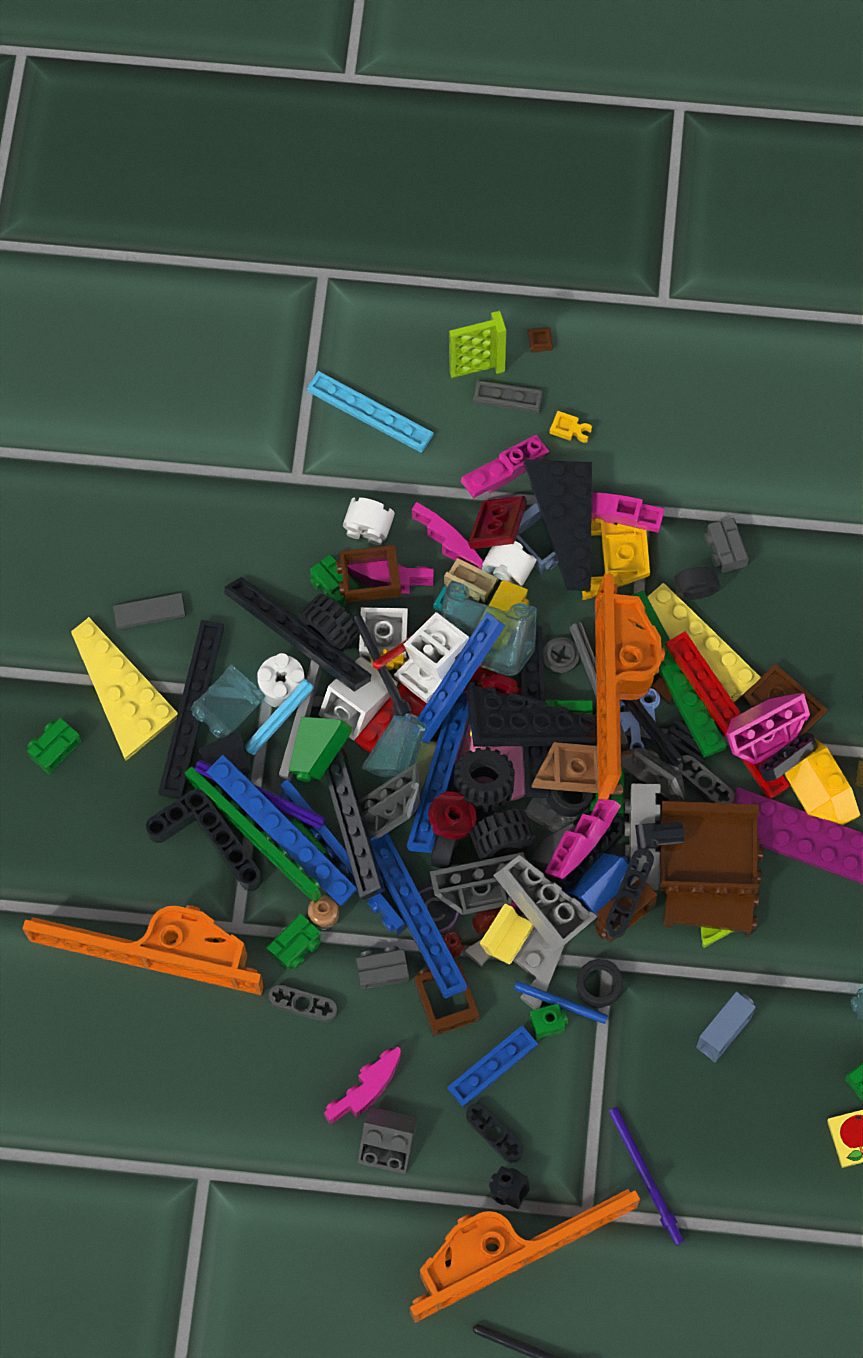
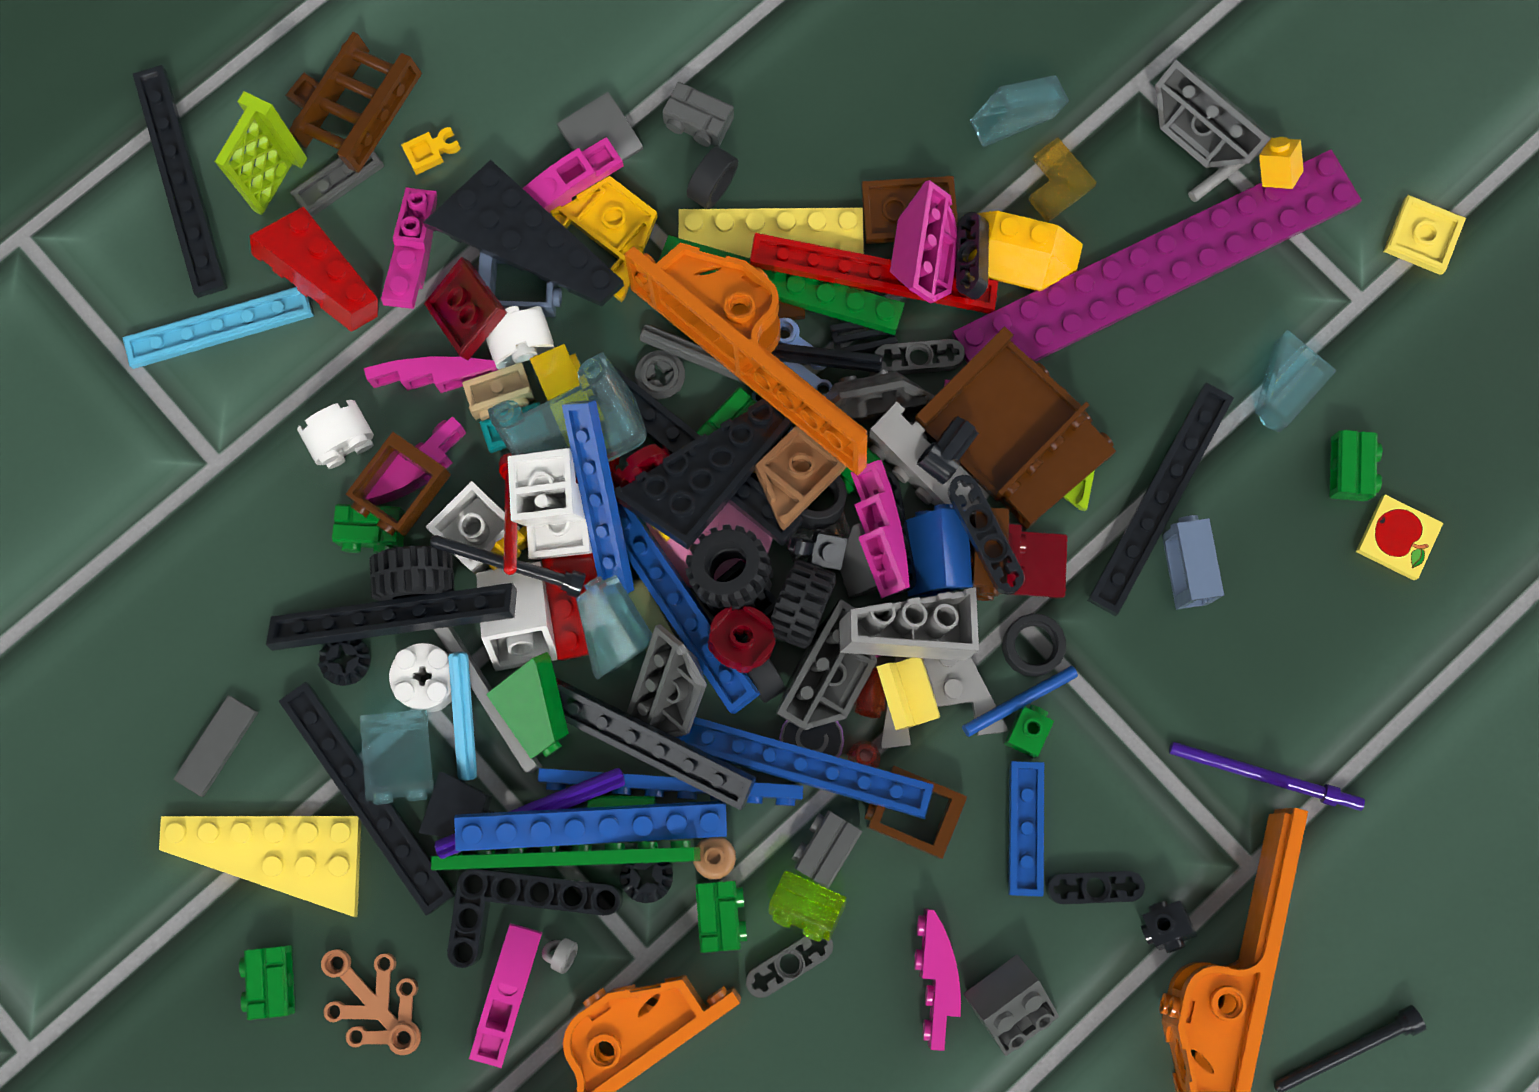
camera: 50 degrees left, 10 degrees up
(89, 810) = (375, 1004): none -> nougat plant
(153, 868) = (505, 995): none -> dark pink slope
(200, 880) = (563, 956): none -> light grey tile
(254, 643) = (355, 669): none -> black gear
(273, 896) = (649, 892): none -> black gear
(341, 982) = (806, 906): none -> clear neon green brick
(428, 321) = (180, 181): none -> black plate
(448, 425) = (311, 261): none -> red wedge
(544, 821) = (823, 549): none -> plate
(562, 384) = (376, 117): none -> reddish brown fence
(646, 943) = (1041, 560): none -> dark red bracket
(672, 498) = (600, 120): none -> dark grey slope
(751, 982) = (1160, 499): none -> black plate

